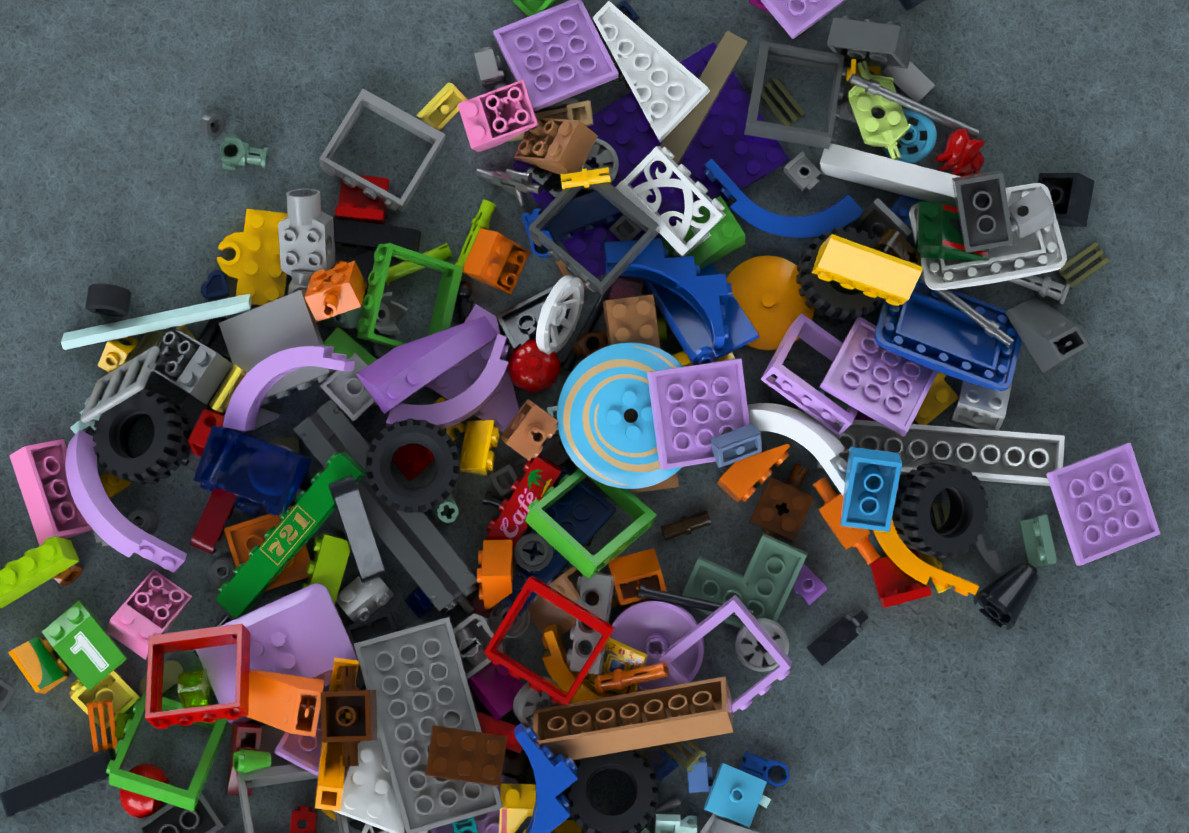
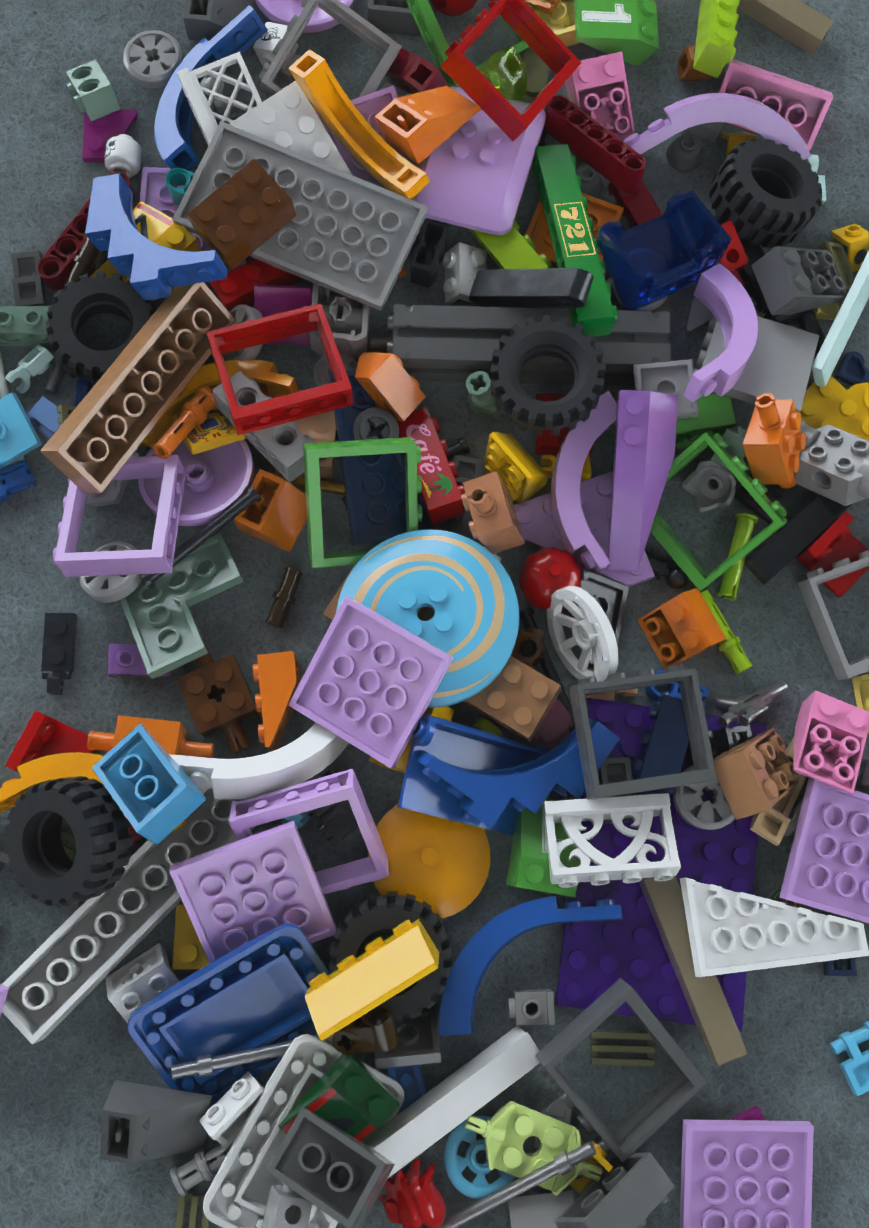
camera: 125 degrees right, 5 degrees down
(127, 387) = (829, 205): light grey bar -> none
(201, 575) = (594, 144): none -> dark red beam
(224, 393) = (747, 280): light yellow slope -> none
(250, 760) = (402, 60): bright green cone -> none
(348, 731) = (366, 144): reddish brown brick -> none
(585, 178) = (704, 764): yellow pin -> none
(736, 445) = (310, 692): sand blue slope -> none
(1001, 294) = (229, 1114): none -> white bracket

